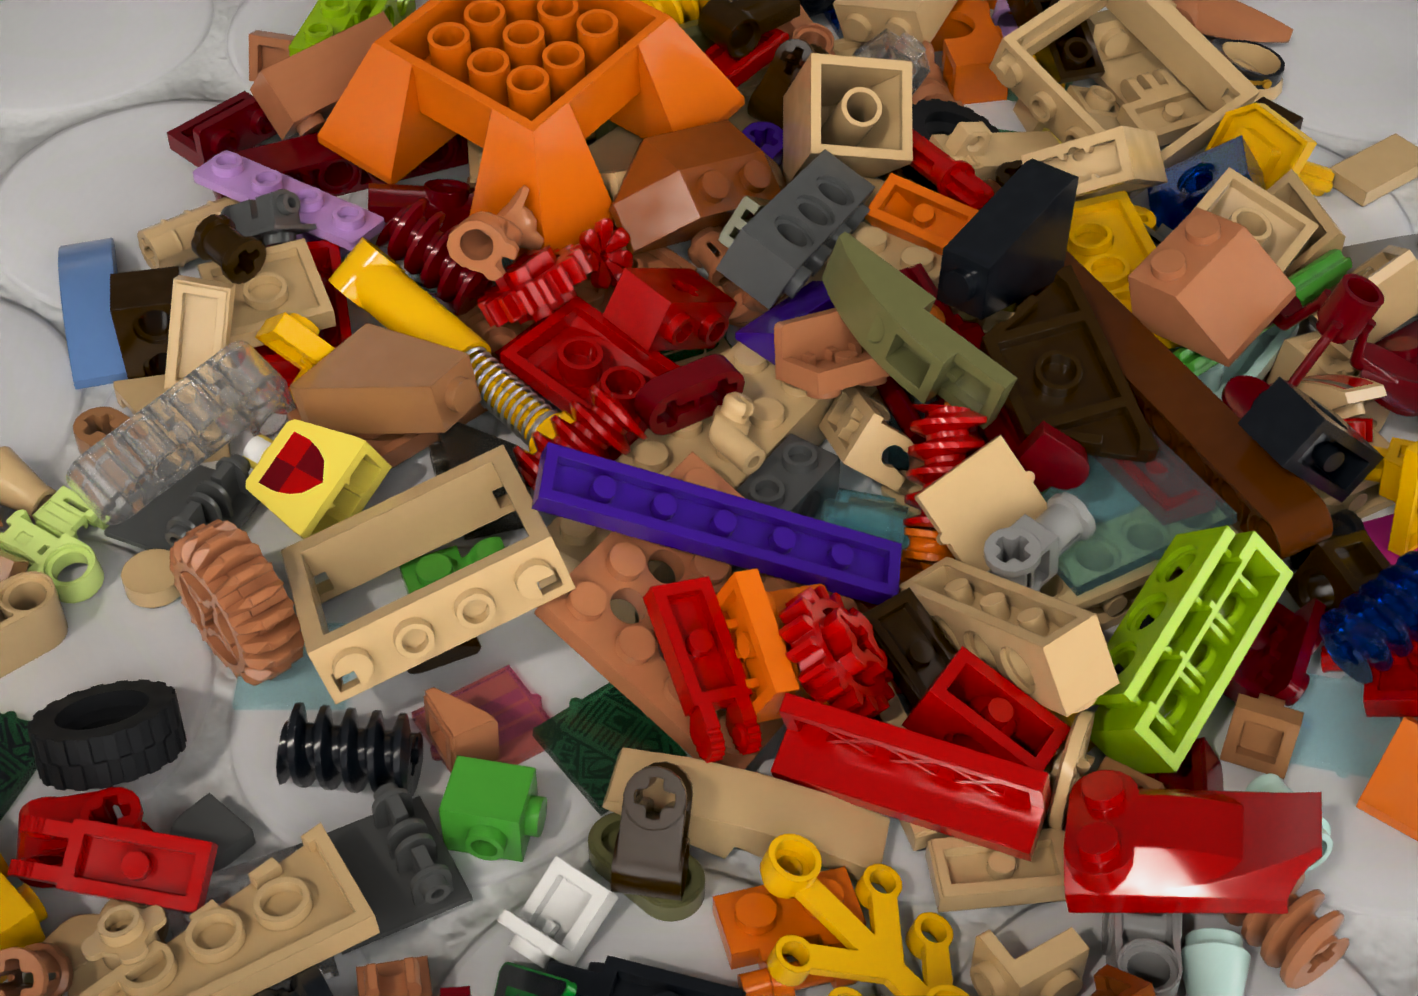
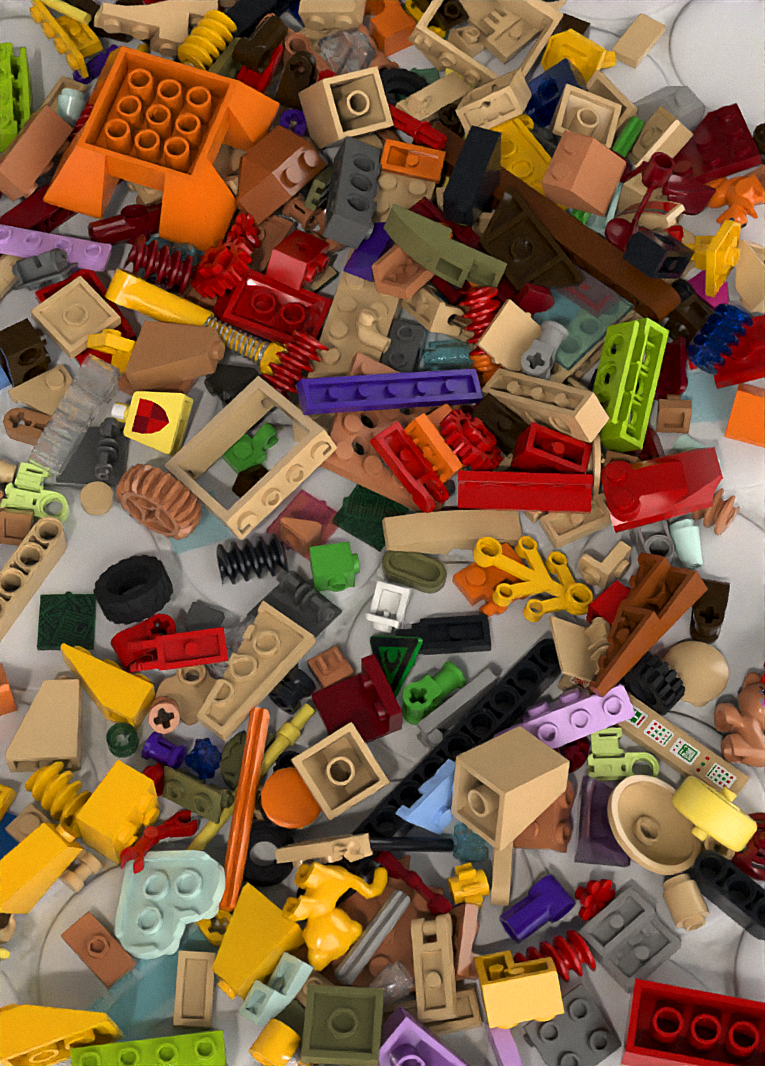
camera: 20 degrees left, 15 degrees up
(123, 934) = (204, 688): tan plate -> none
(198, 324) = (58, 355): tan tile -> none
(235, 254) = (48, 298): dark brown bush -> none
(489, 238) = (192, 247): nougat animal -> none
(653, 845) = (420, 560): dark brown piece -> none
(687, 394) = (339, 316): dark red beam -> none

